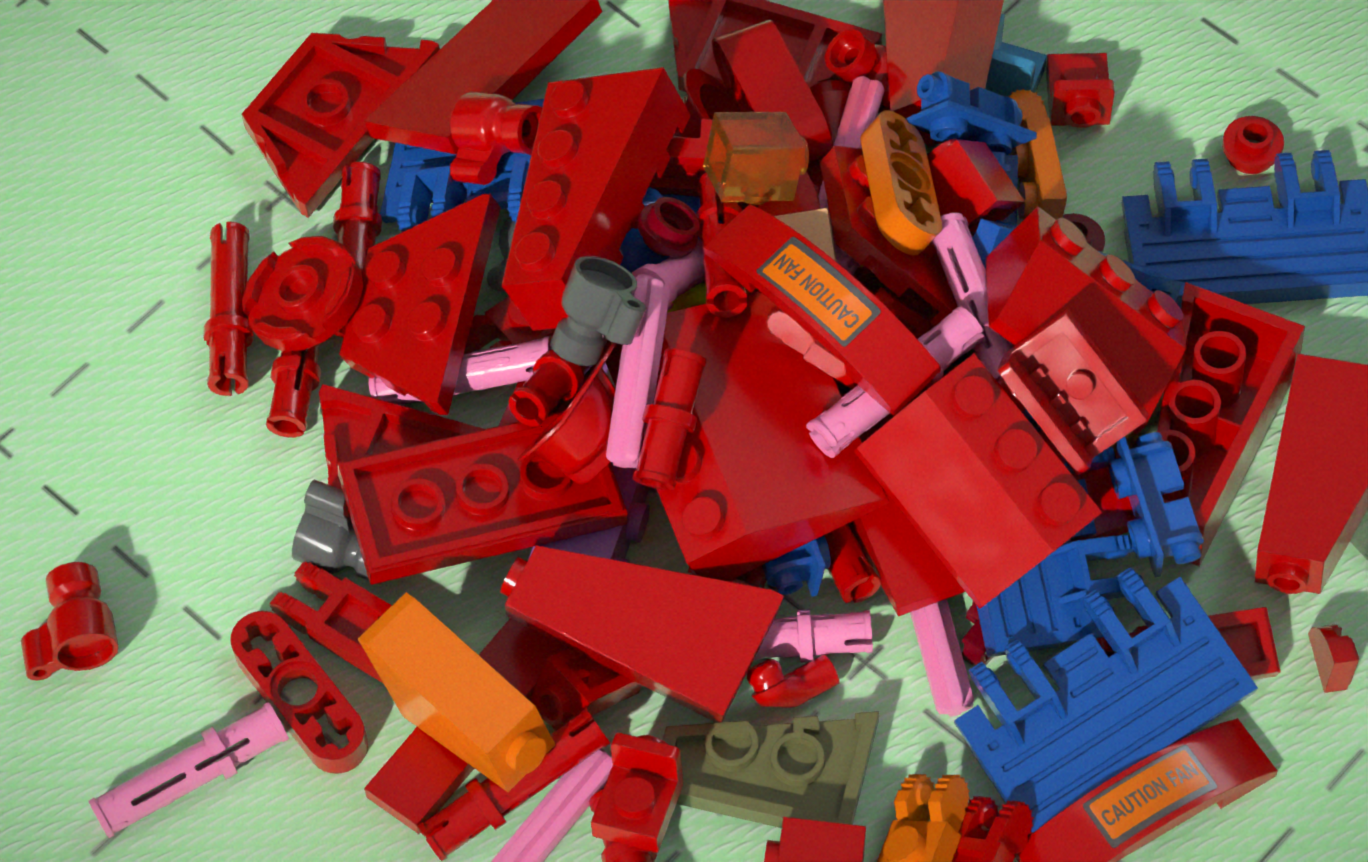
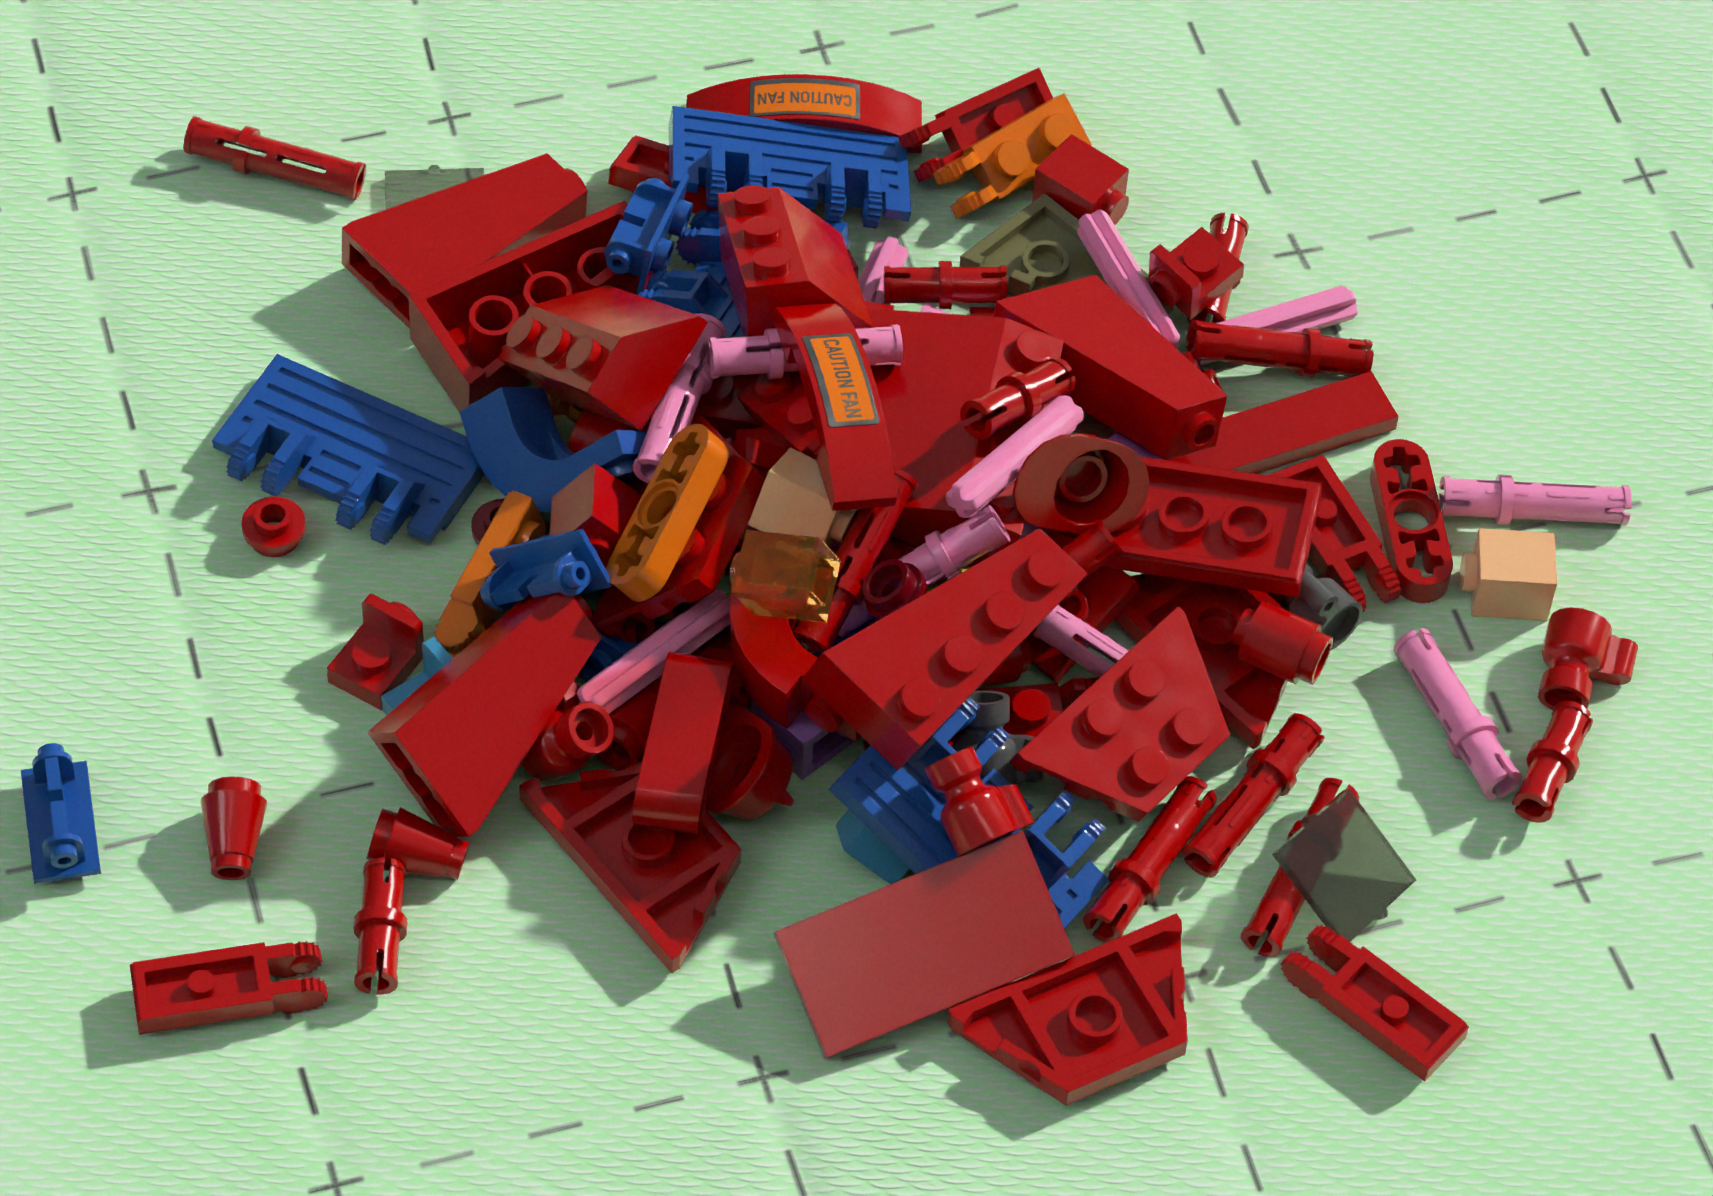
camera: 155 degrees left, 5 degrees down
(55, 509) = (1552, 761): none -> red pin
(112, 232) = (1377, 1002): none -> red hinge
(142, 500) = (1469, 733): none -> bright pink pin
(174, 668) = (1510, 574): none -> light nougat brick
(188, 313) = (1344, 866): none -> clear smoke piece
(303, 294) = (1231, 808): red tile -> none
(330, 438) = (1282, 643): none -> red brick
(455, 694) = (1299, 380): orange slope -> none
(598, 310) = (1015, 499): dark grey piece -> none
(699, 754) = (1123, 272): none -> bright pink axle
(868, 663) = (944, 284): none -> red pin
(1070, 391) = (689, 274): bracket -> none
(1334, 657) = (586, 132): red tile -> none

